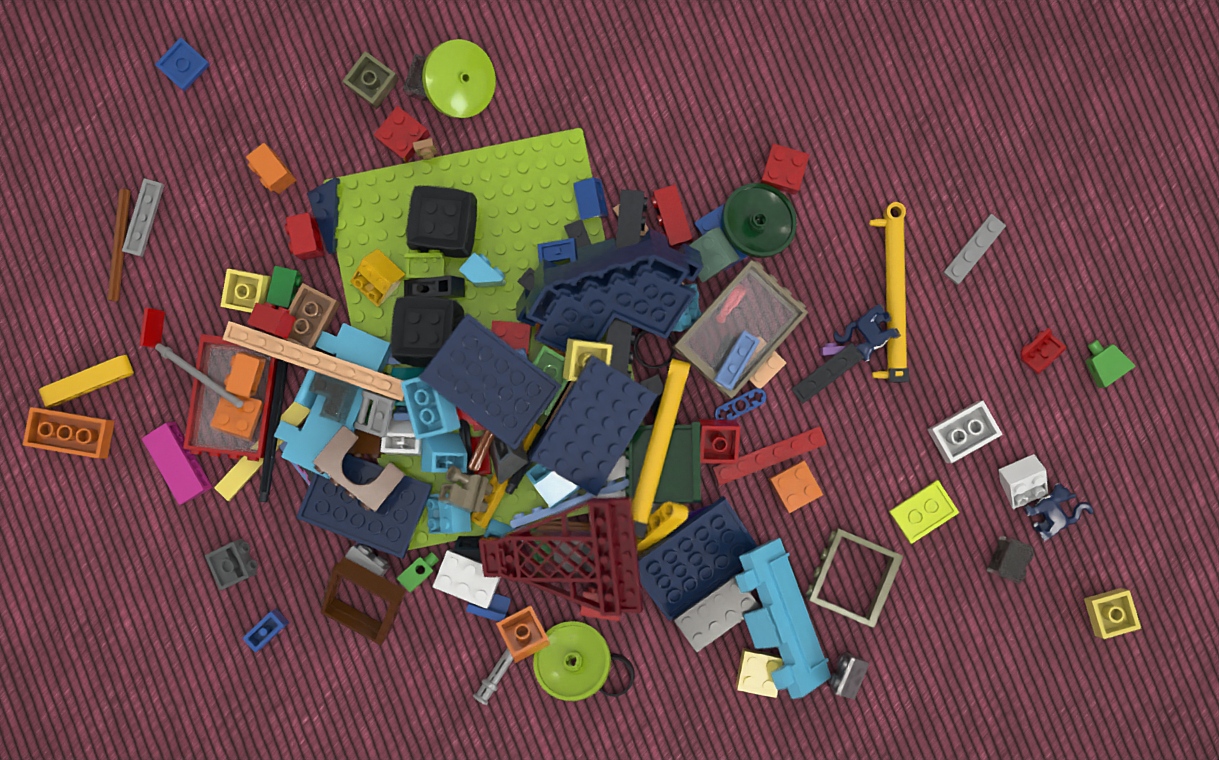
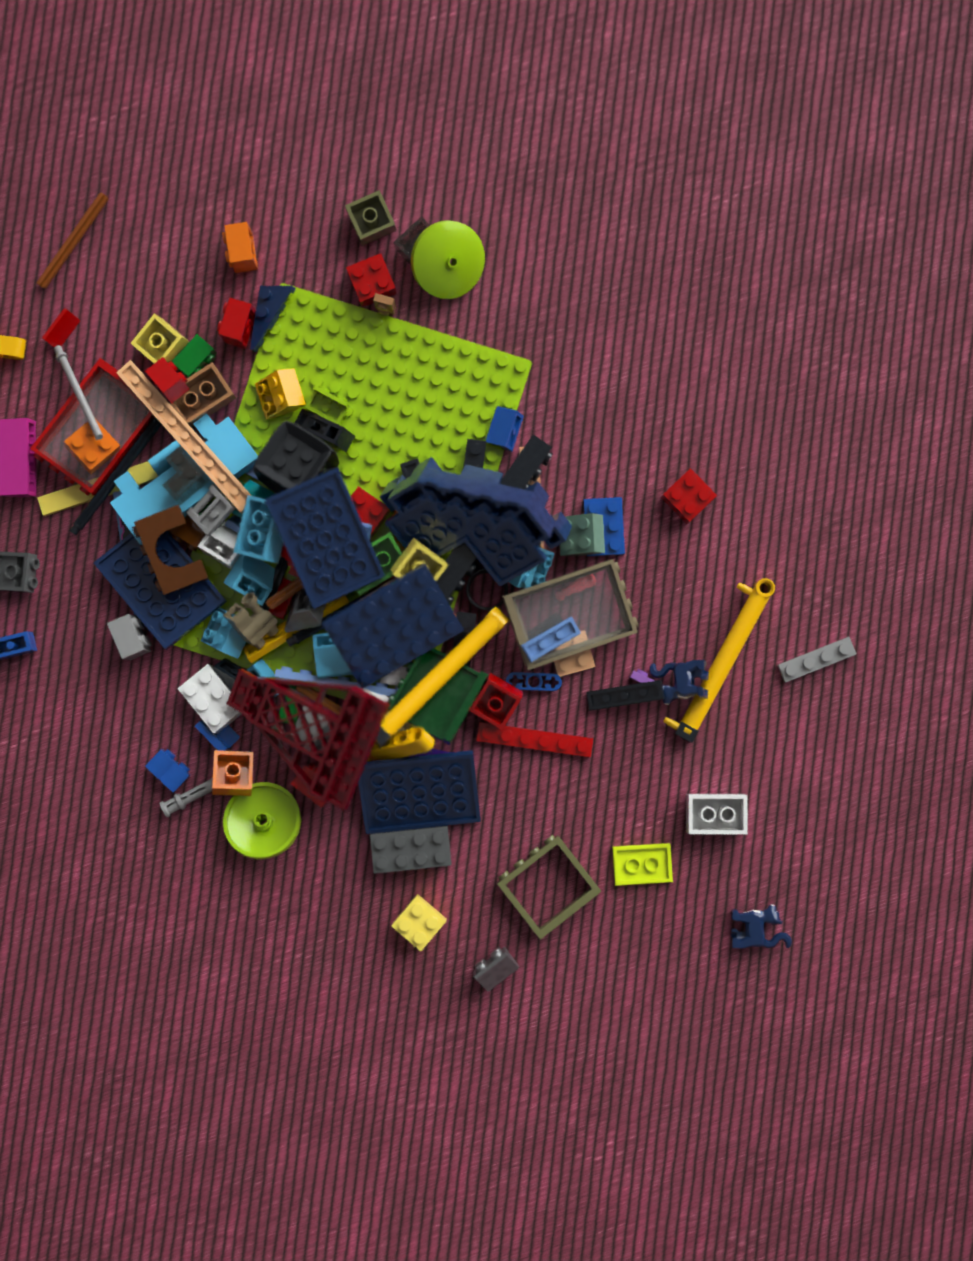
camera: 25 degrees right, 0 degrees up
(143, 217) = (106, 228): light grey plate -> none
(182, 64) = (215, 113): blue plate -> none
(245, 374) = (118, 413): orange brick -> none
(353, 618) = (93, 676): reddish brown window -> none
(411, 579) = (162, 669): bright green torso -> none
(442, 221) = (362, 375): black piece -> none
(464, 662) = (168, 769): none -> blue brick
(479, 272) = (370, 439): medium azure slope -> none
(558, 250) = (450, 457): blue plate -> none
(622, 658) = (310, 856): black tyre -> none
(671, 216) = (566, 482): red brick -> none
(759, 220) = (640, 528): dark green dish -> none
(783, 619) = (464, 886): medium azure piece -> none
(795, 486) = (541, 778): orange brick -> none
(1011, 559) = (693, 947): clear smoke brick -> none
(1024, 481) = (744, 886): white slope -> none
(1042, 351) = (825, 781): red bracket -> none
(1107, 363) = (876, 824): bright green torso -> none
(1112, 613) = (756, 1044): light yellow brick -> none

